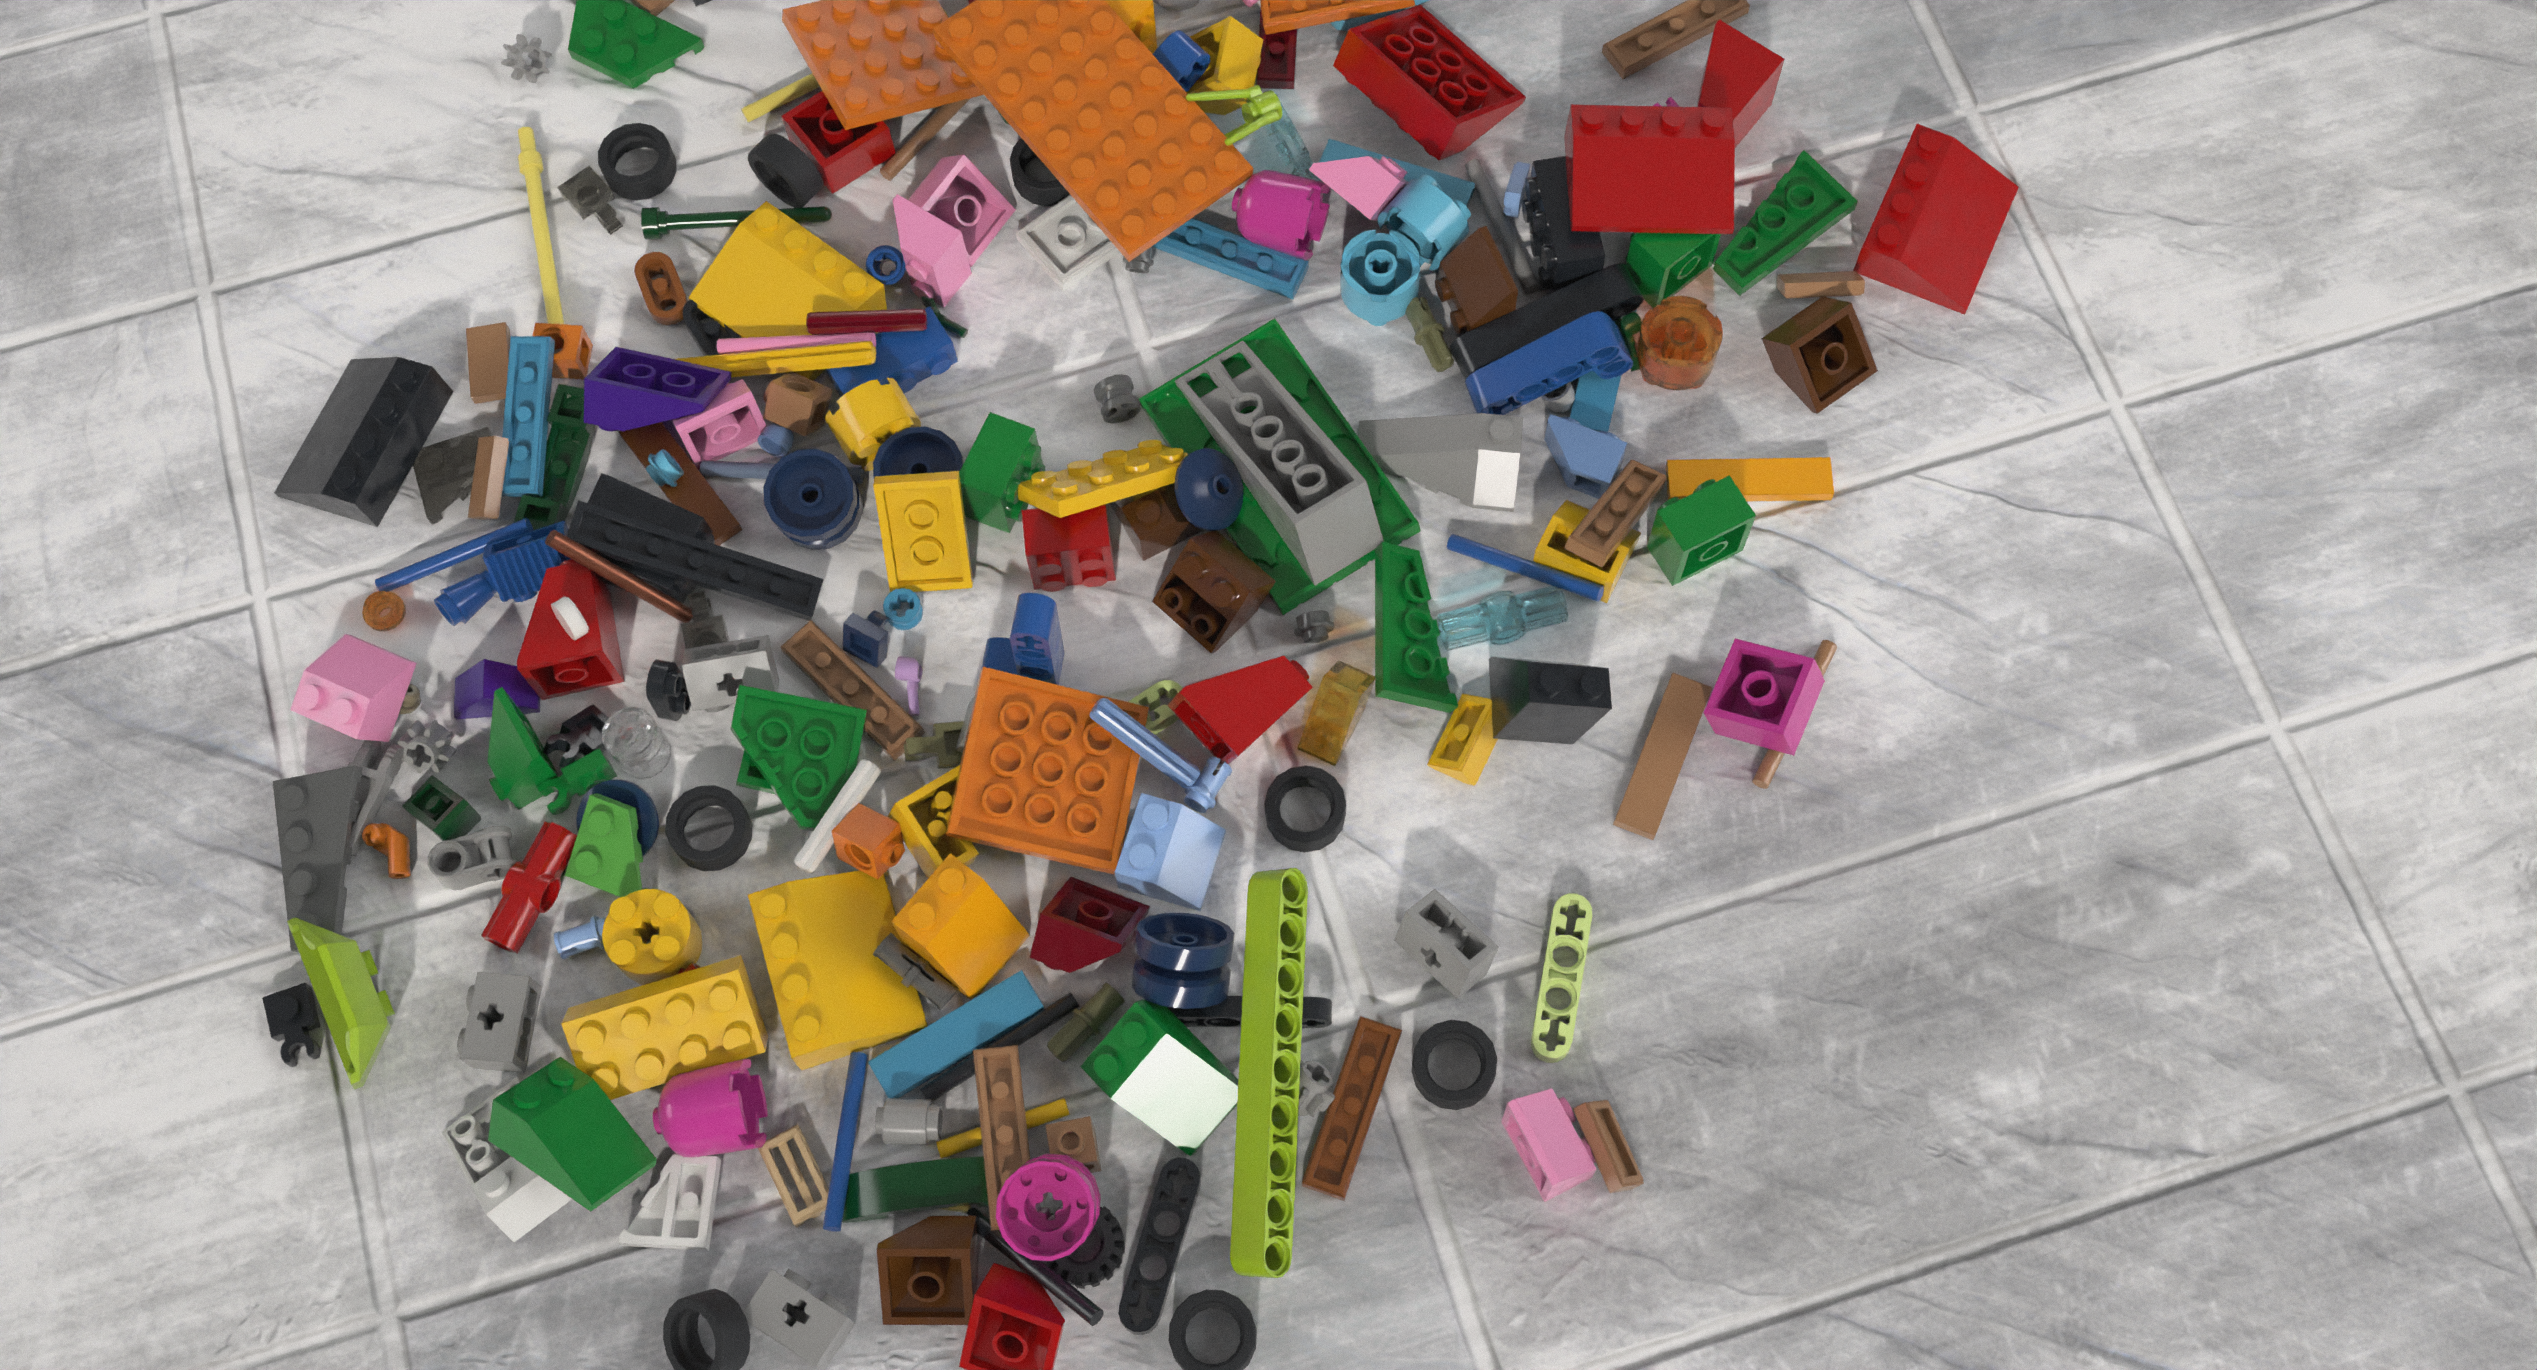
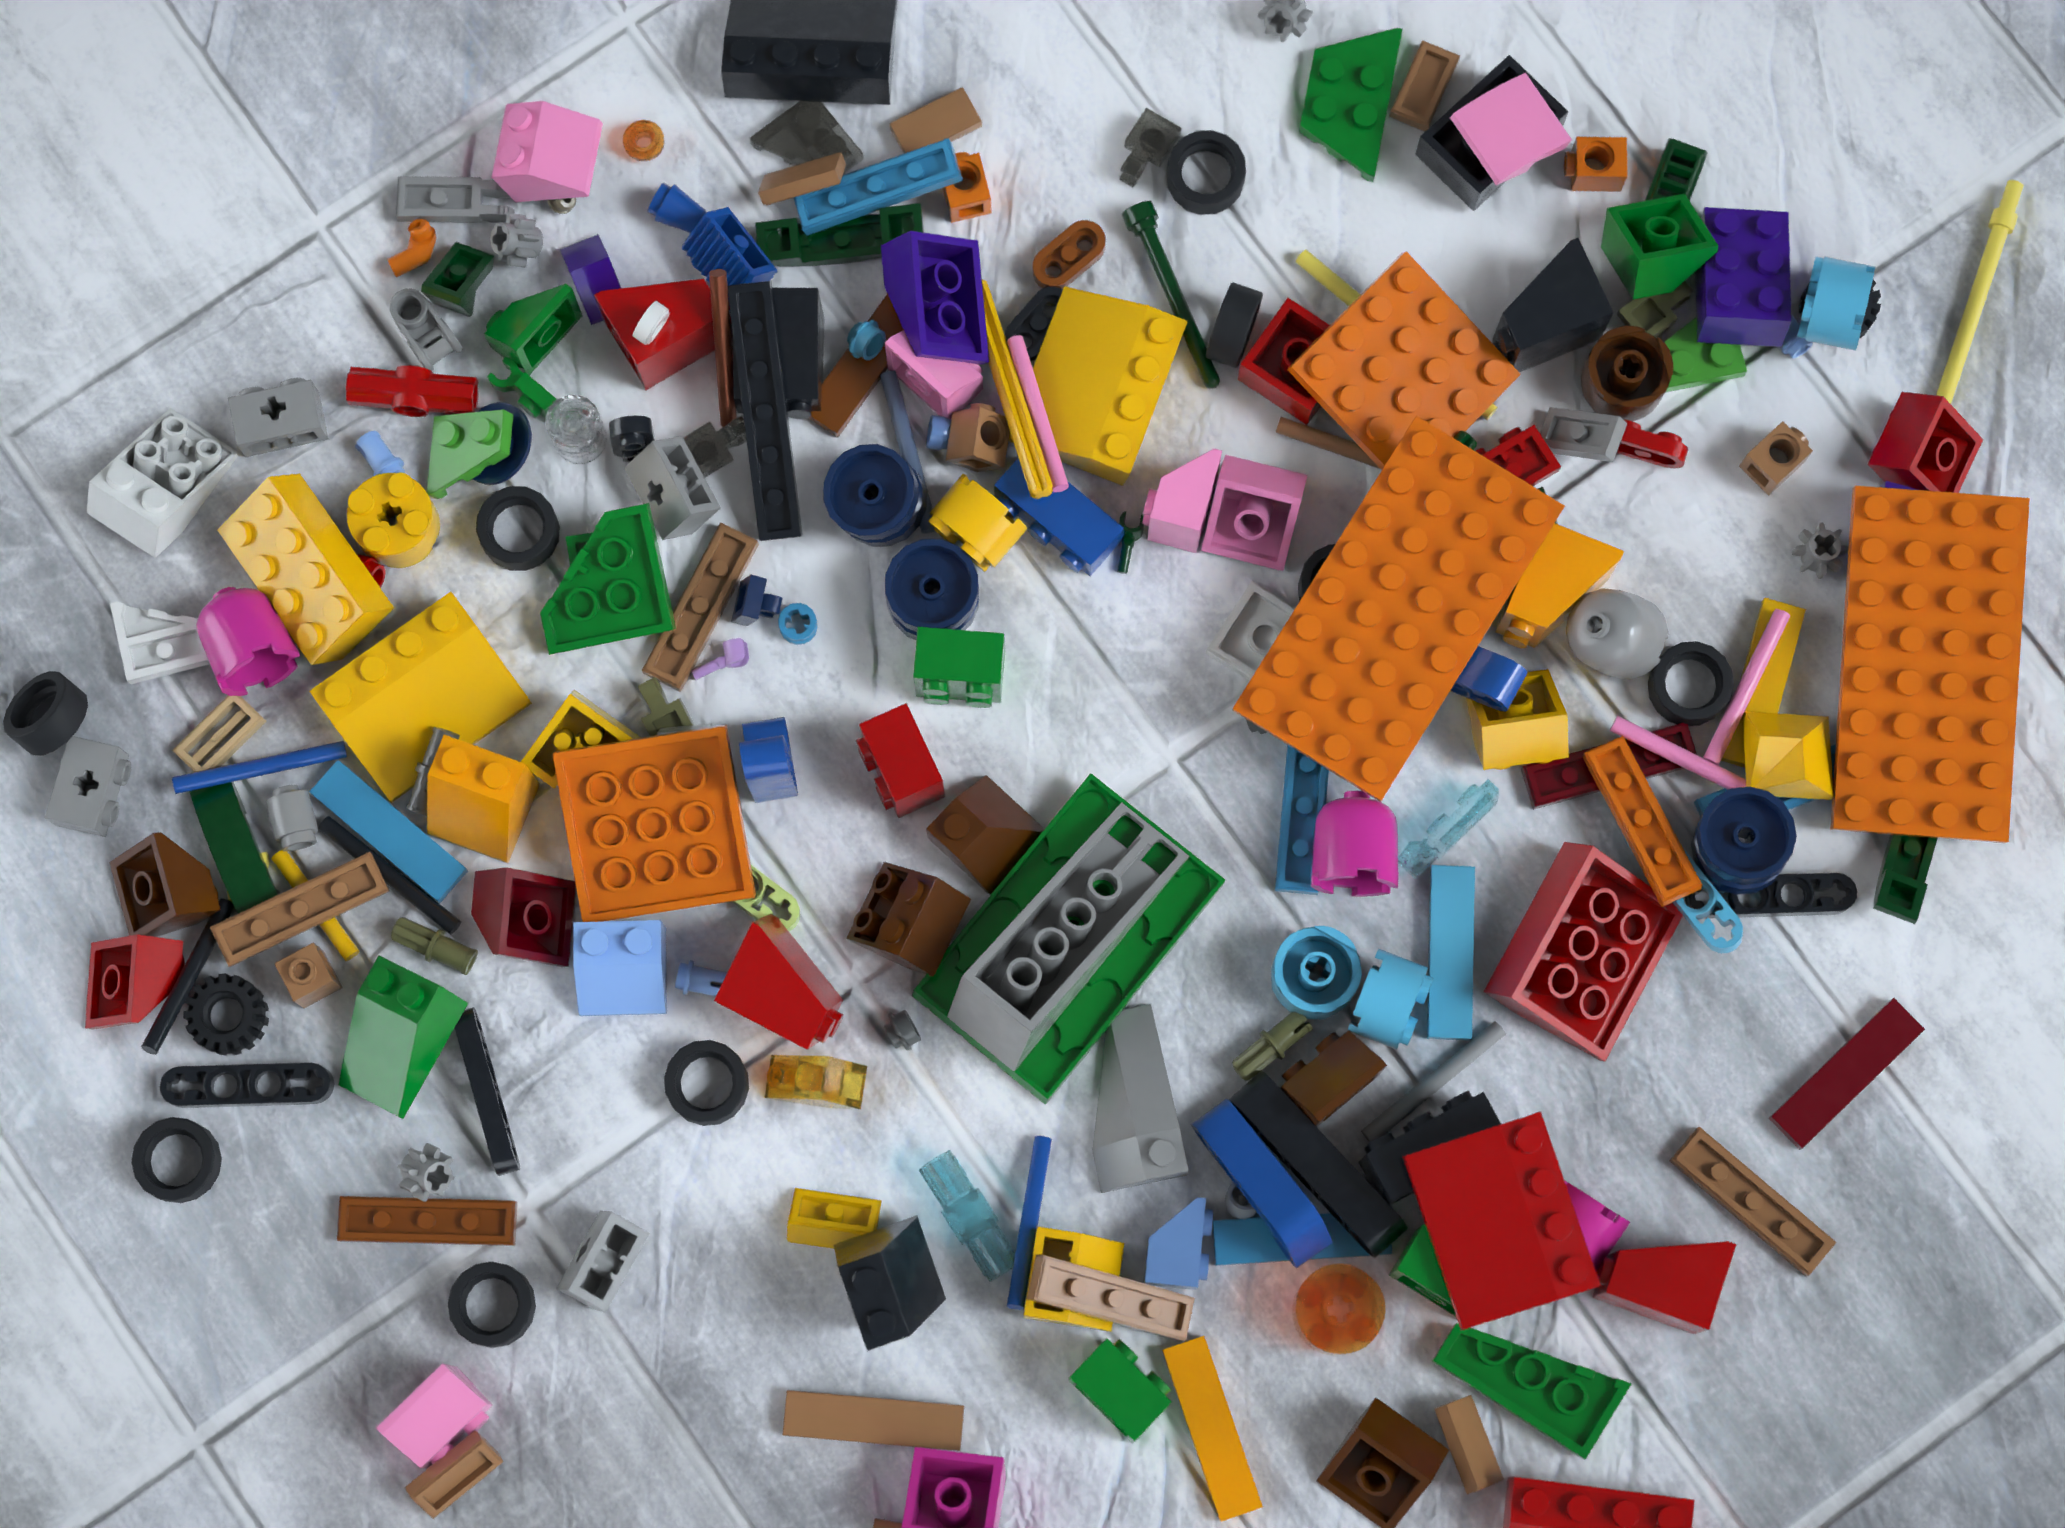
camera: 70 degrees right, 10 degrees up
(289, 1018) = (234, 232): black plate -> none
(314, 840) = (397, 179): dark grey wing -> none
(345, 995) = (259, 272): lime wedge -> none
(450, 557) = (715, 181): blue bar -> none
(531, 167) = (1168, 70): light yellow bar -> none
(569, 1134) = (174, 526): green slope -> none
(578, 735) = (569, 377): black plate -> none
(849, 796) = (558, 643): white axle -> none
(866, 321) = (1078, 474): dark red axle -> none
(868, 841) = (543, 681): orange brick -> none
(881, 255) = (1152, 465): blue cone -> none
(924, 531) = (866, 615): yellow plate -> none
(1033, 1229) = (227, 972): dark pink wheel -> none
(1102, 481) = (978, 776): yellow plate -> none
(1117, 398) = (1090, 750): dark grey wheel -> none
(1144, 742) = (712, 906): medium blue axle -> none
(1182, 960) = (504, 1015): dark blue wheel -> none
(1198, 494) = (997, 864): dark blue dish -> none
(1257, 112) = (1460, 784): lime plant -> none
(1269, 1074) = (421, 1131): lime beam -> none
(1363, 181) = (1412, 918): bright pink slope -> none
(1405, 633) = (907, 1129): green wing -> none
(1516, 189) = (1455, 1084): light blue tile -> none
(1561, 977) = (611, 1379): yellowish green beam -> none
(1629, 326) = (1342, 1250): dark green hand -> none

